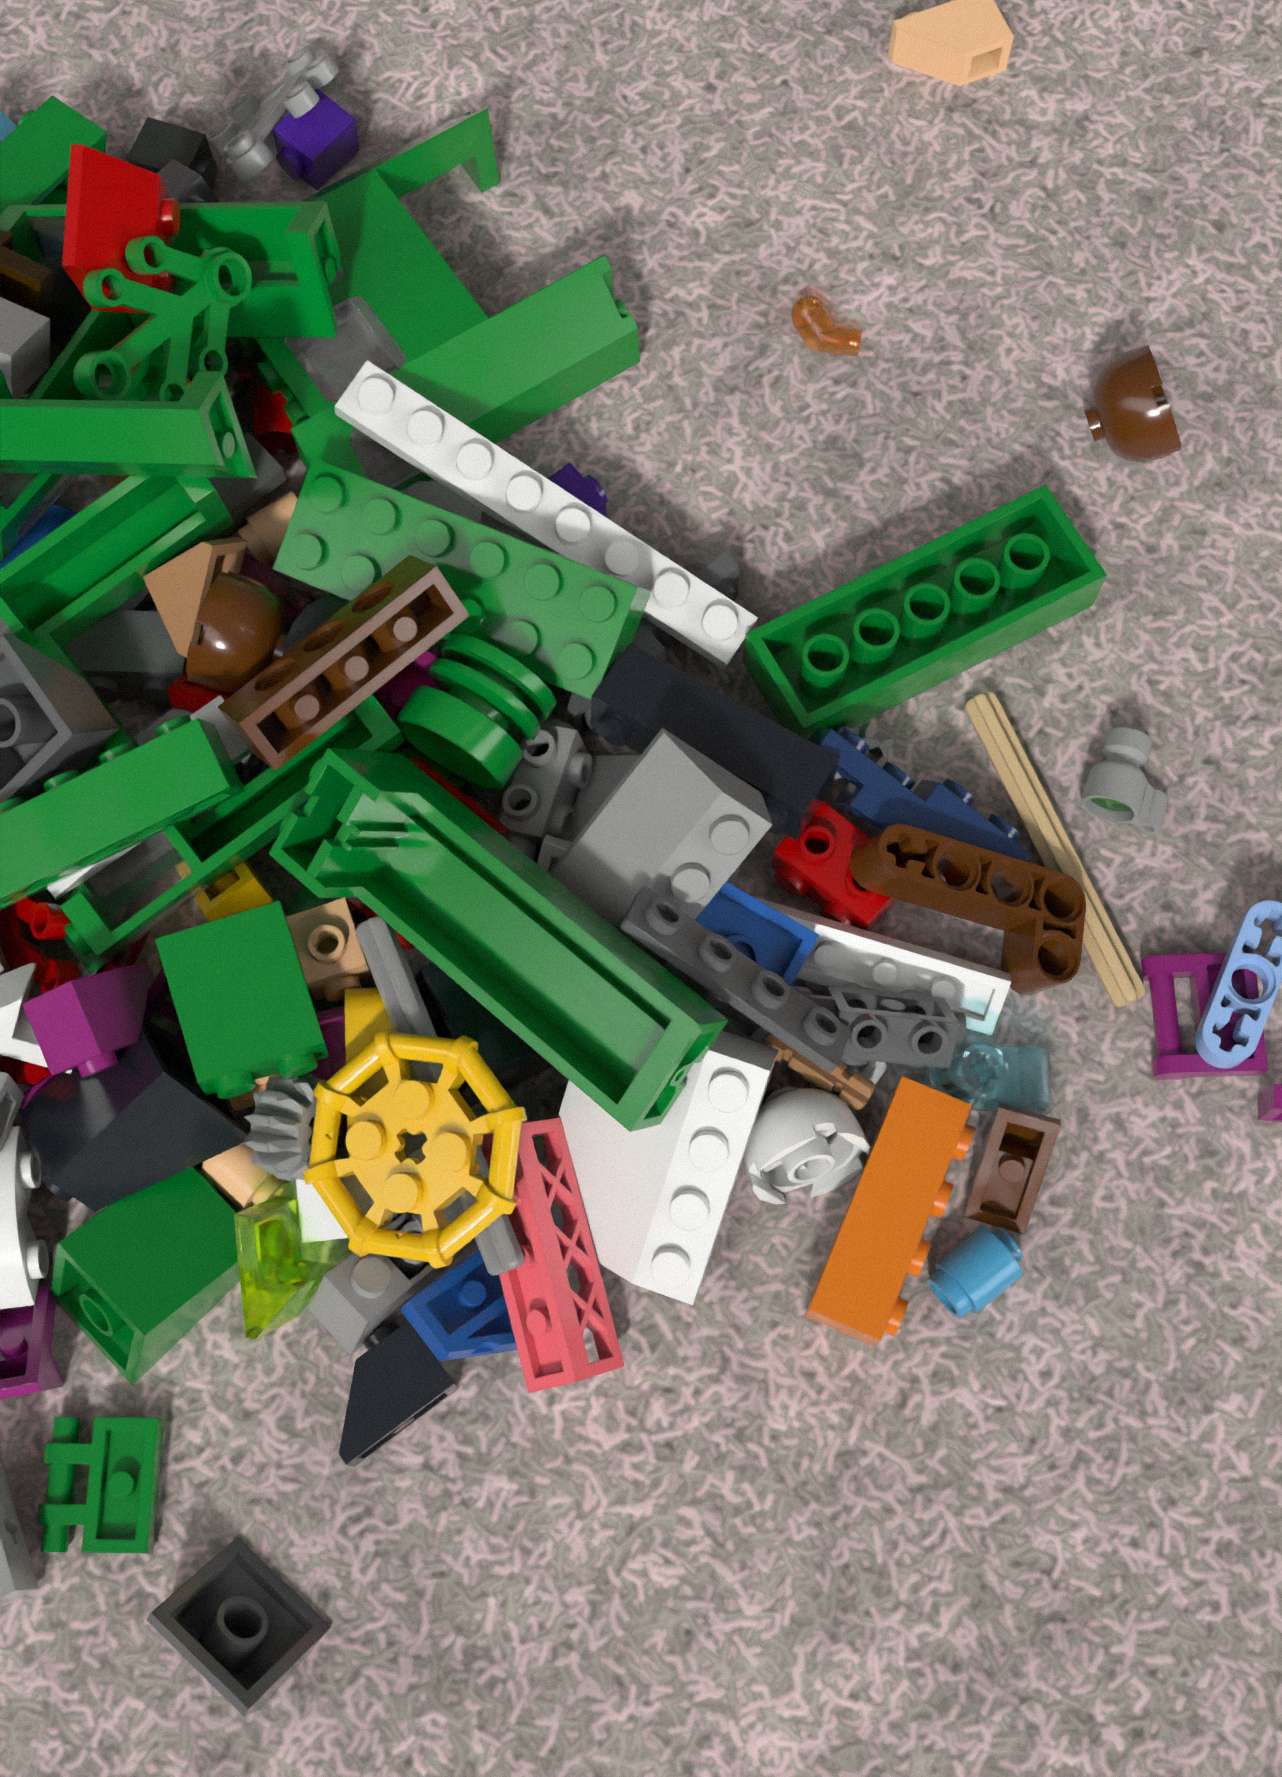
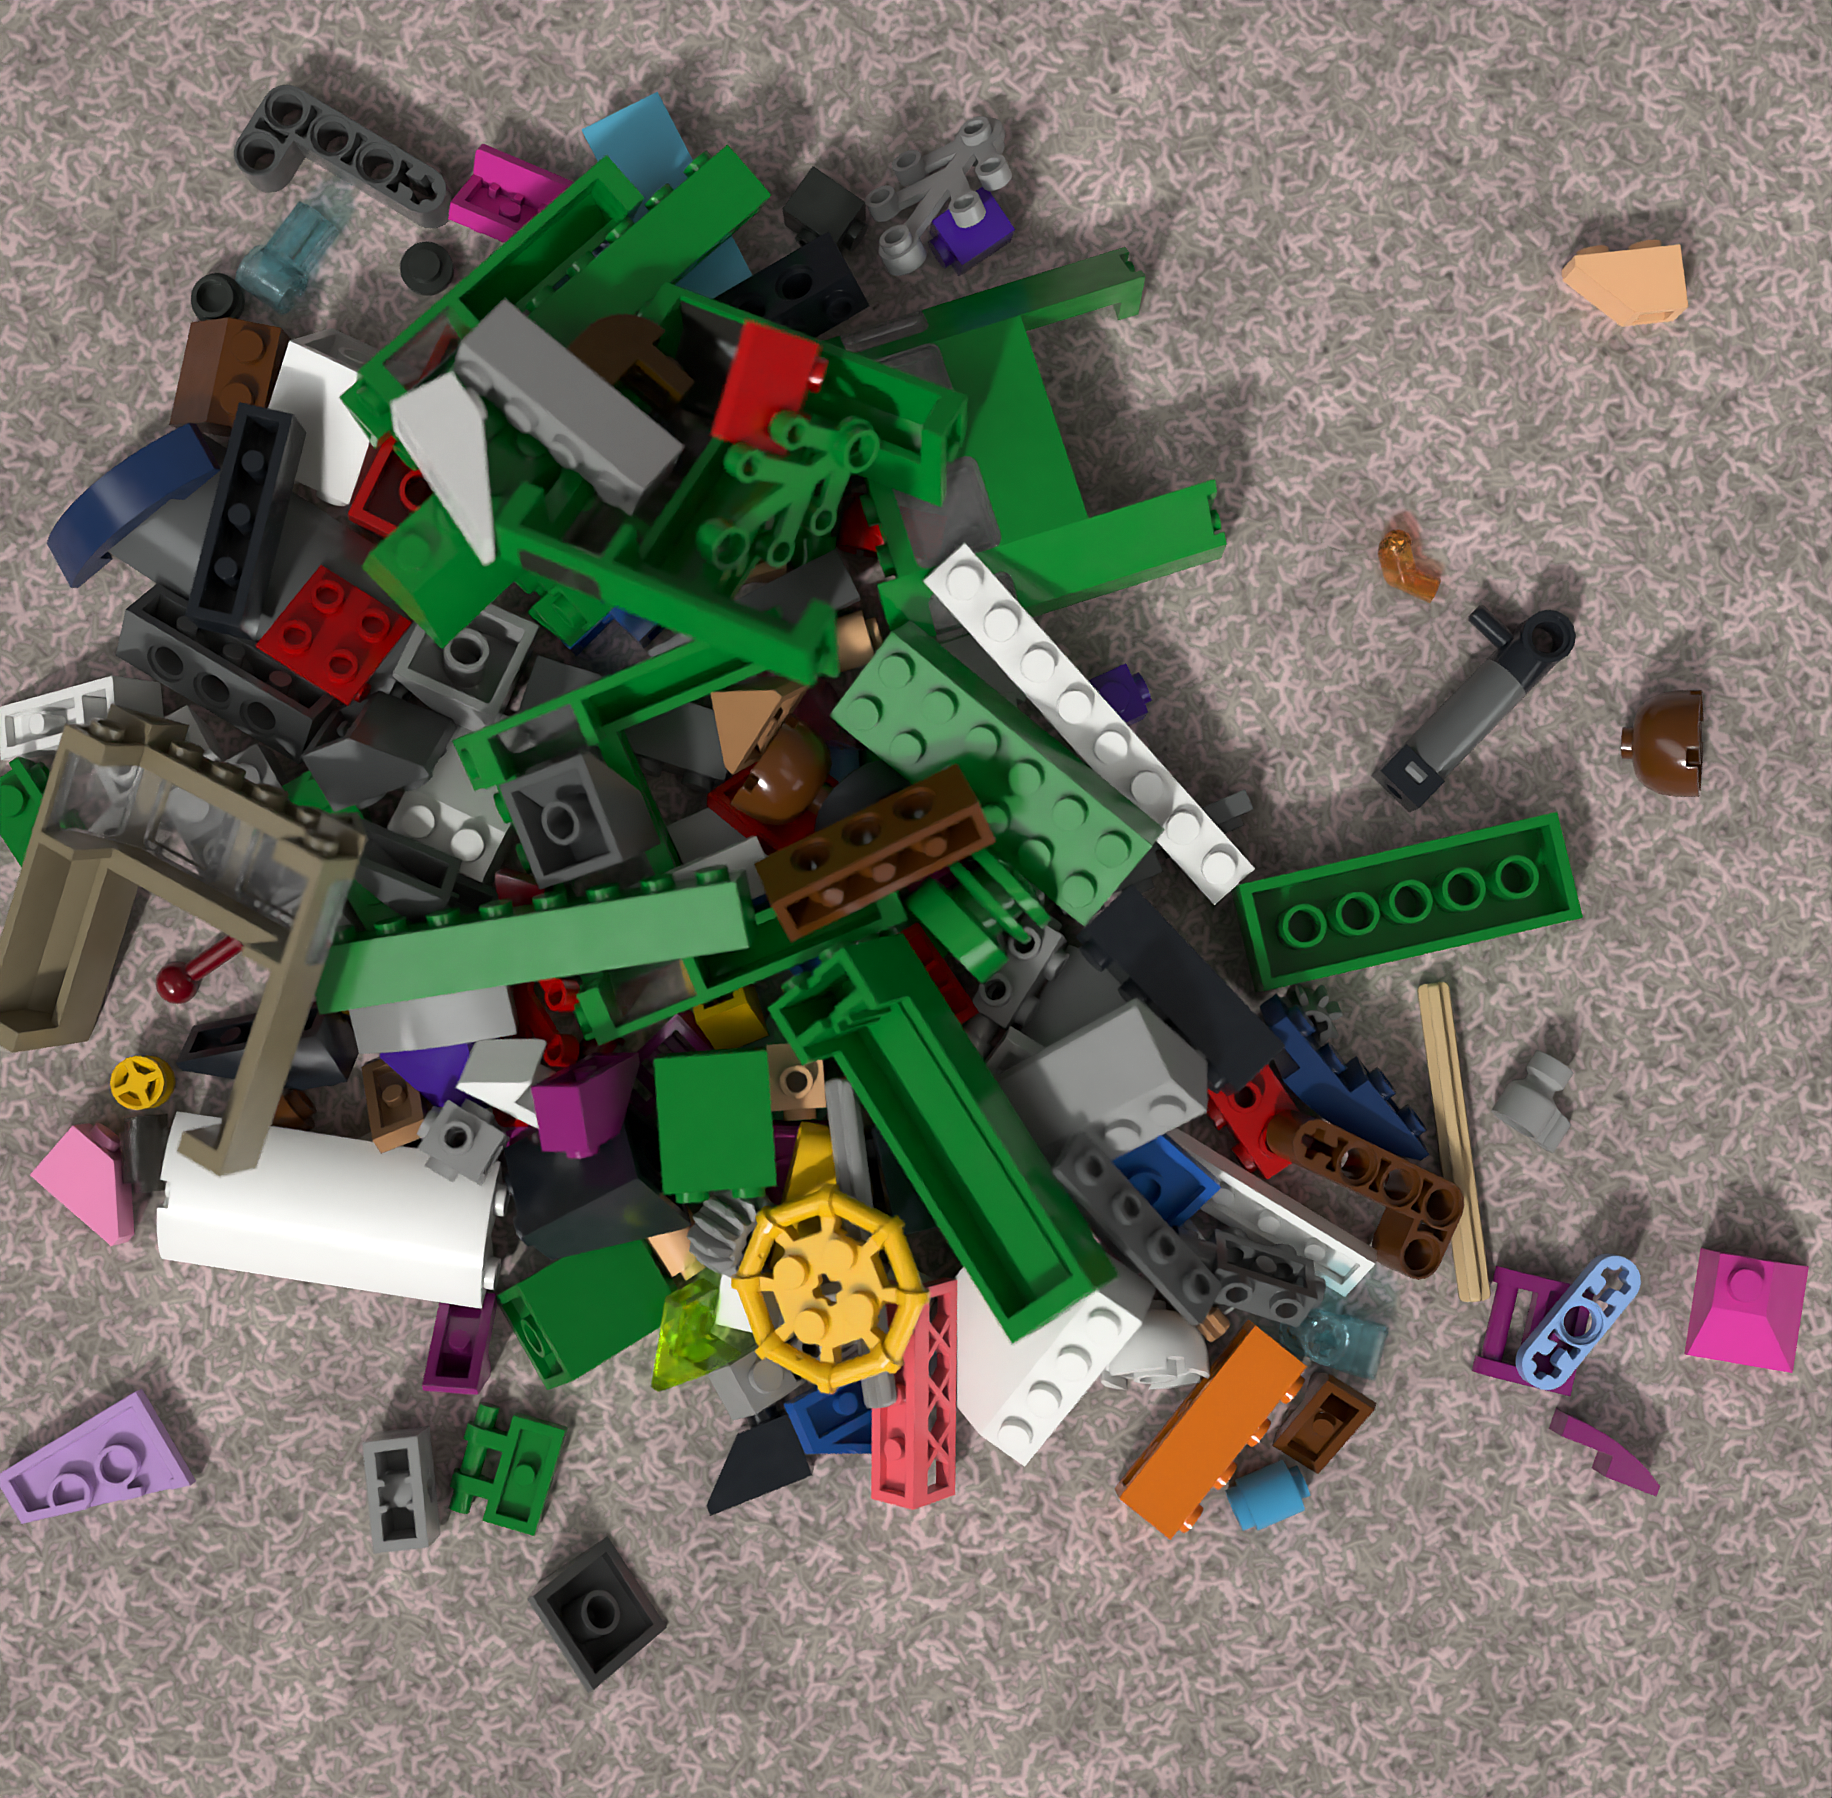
camera: 10 degrees right, 15 degrees up
(896, 492) = (1476, 706): none -> piece

